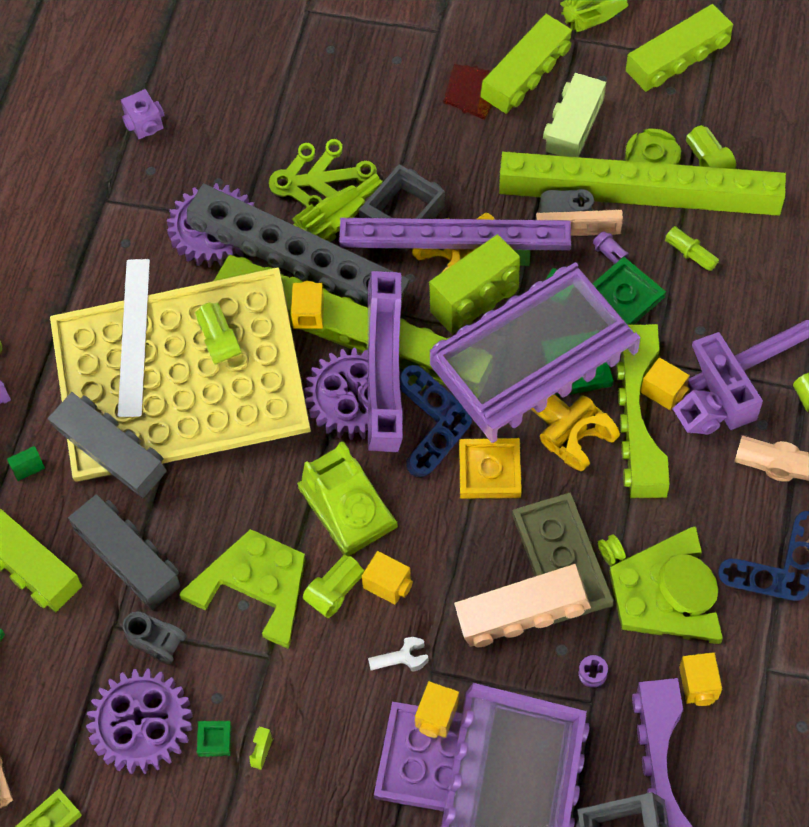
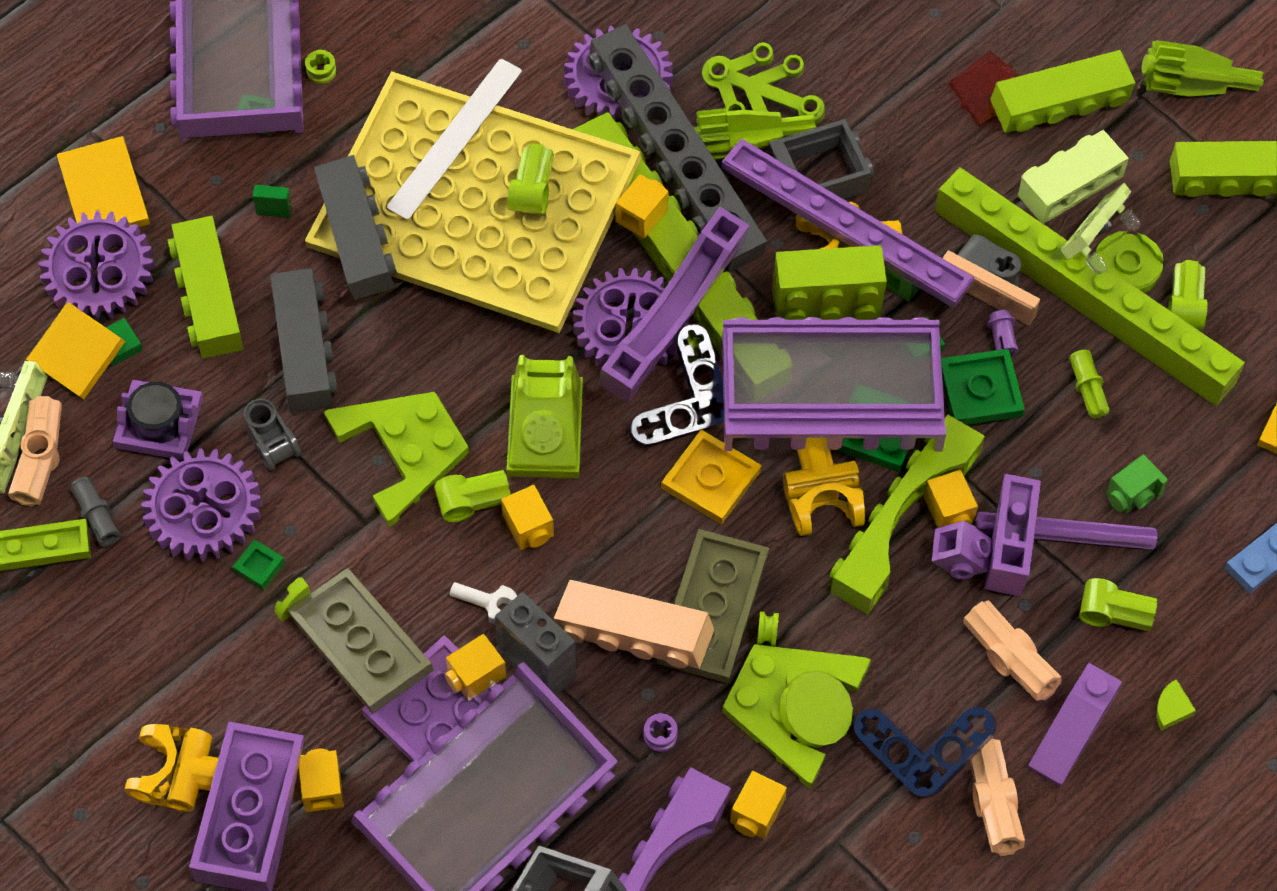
camera: 30 degrees right, 0 degrees up
(58, 678) = (157, 419): none -> piece
(60, 778) = (95, 511): none -> dark grey pin
(335, 745) = (360, 640): none -> olive plate
(461, 667) = (543, 649): none -> dark grey window
(621, 139) = (1097, 224): none -> yellowish green piece
(775, 298) = (1136, 485): none -> bright green brick

